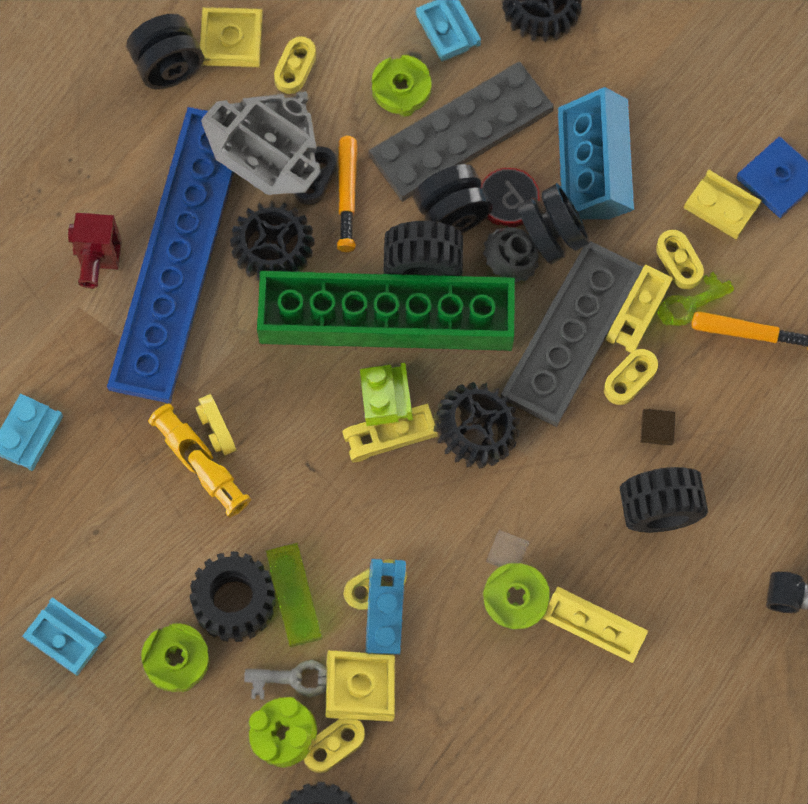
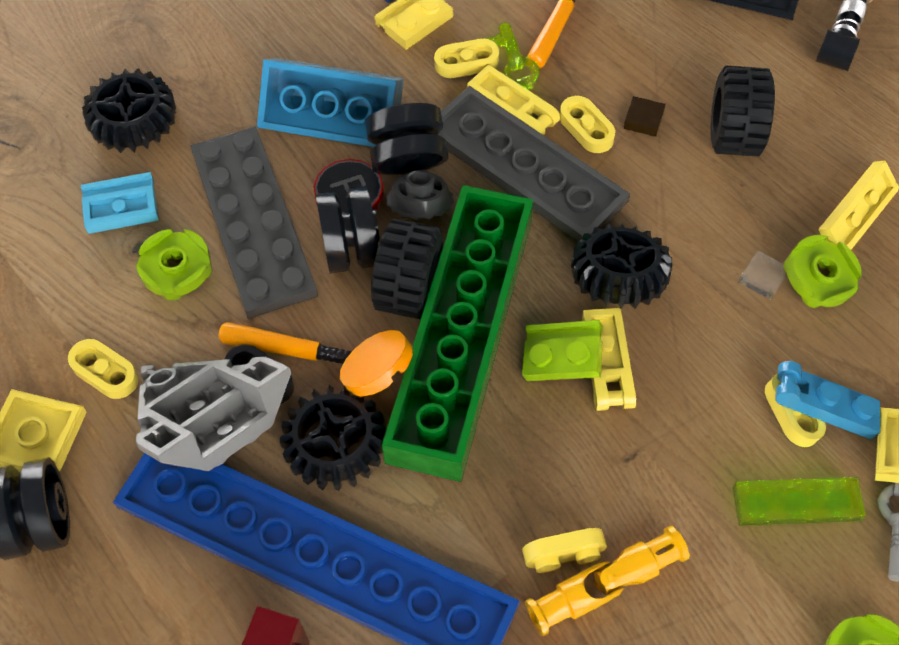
camera: 75 degrees left, 10 degrees down
(228, 570) = (824, 547): black tyre -> none
(331, 250) = (375, 362): none -> light orange tile

